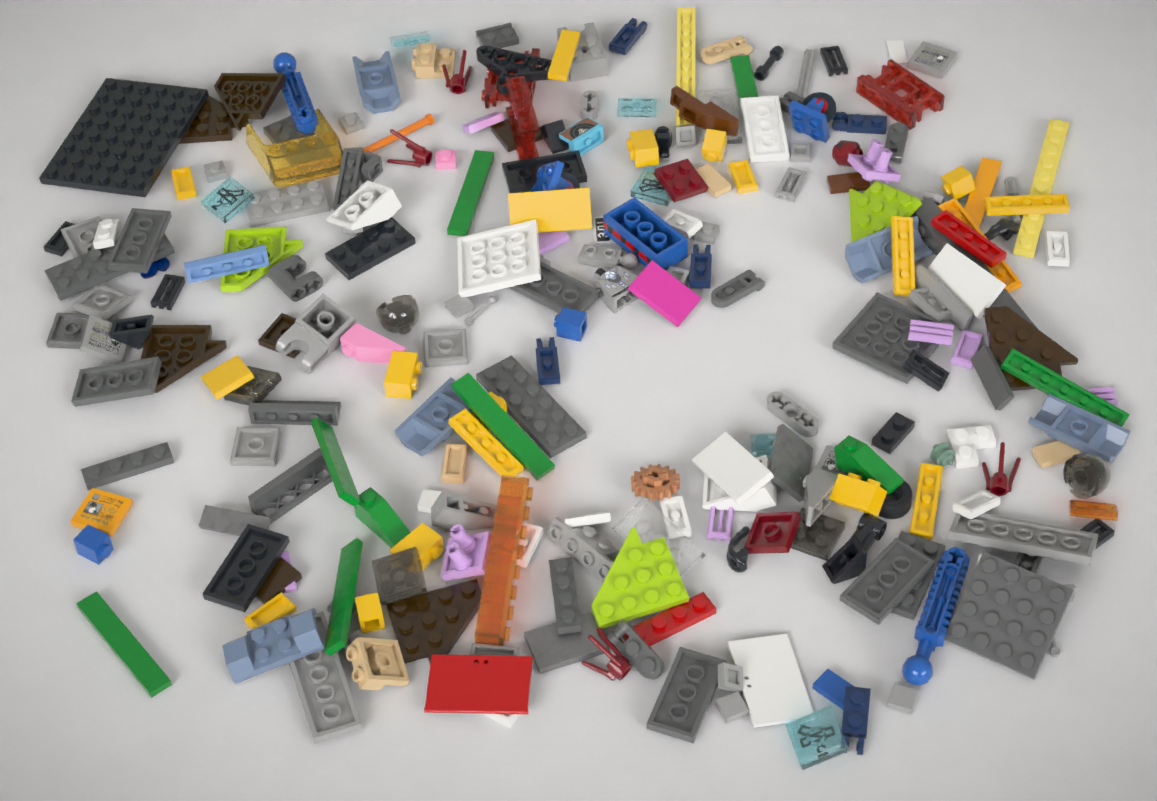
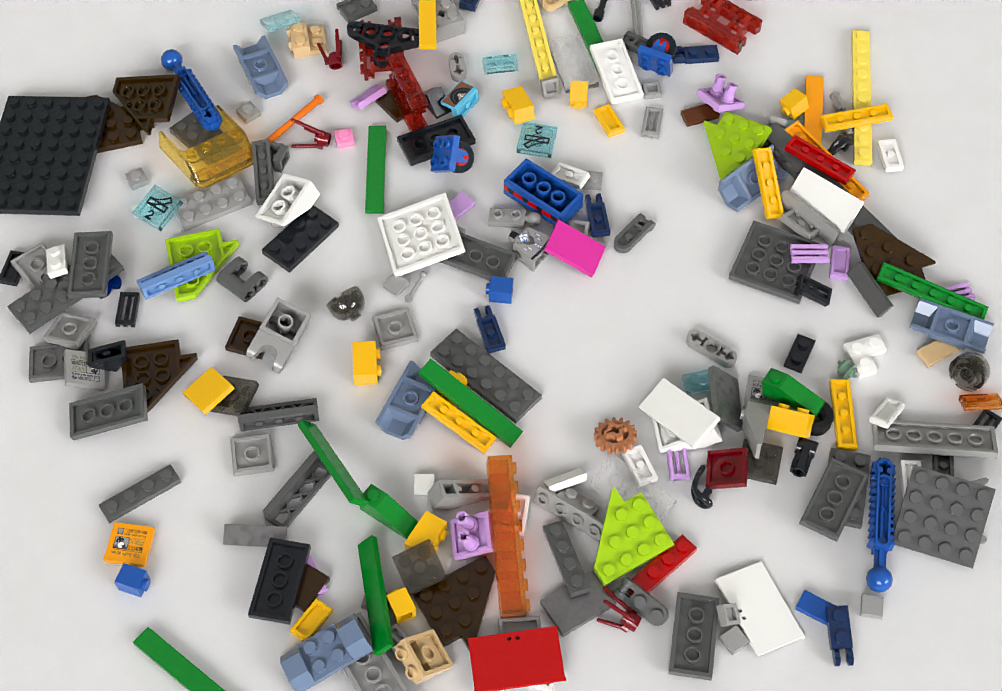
camera: 15 degrees left, 10 degrees up
(183, 183) = (110, 195): yellow tile -> none
(368, 345) = (328, 339): bright pink slope -> none
(454, 463) = (434, 443): tan tile -> none
(552, 209) = (458, 180): yellow tile -> none
(598, 227) = (498, 188): sticker -> none
(664, 140) = (533, 93): black piece -> none
(680, 180) = (558, 132): dark red plate -> none
(703, 115) = (566, 67): reddish brown slope -> none
(716, 183) = (583, 128): tan tile -> none
(817, 737) = (813, 657): clear light blue tile -> none
(842, 150) = (691, 84): dark red head -> none
(846, 562) = (795, 485): black slope -> none
(897, 140) = (730, 67): dark grey plate -> none
(999, 482) = (899, 388): dark red plant -> none

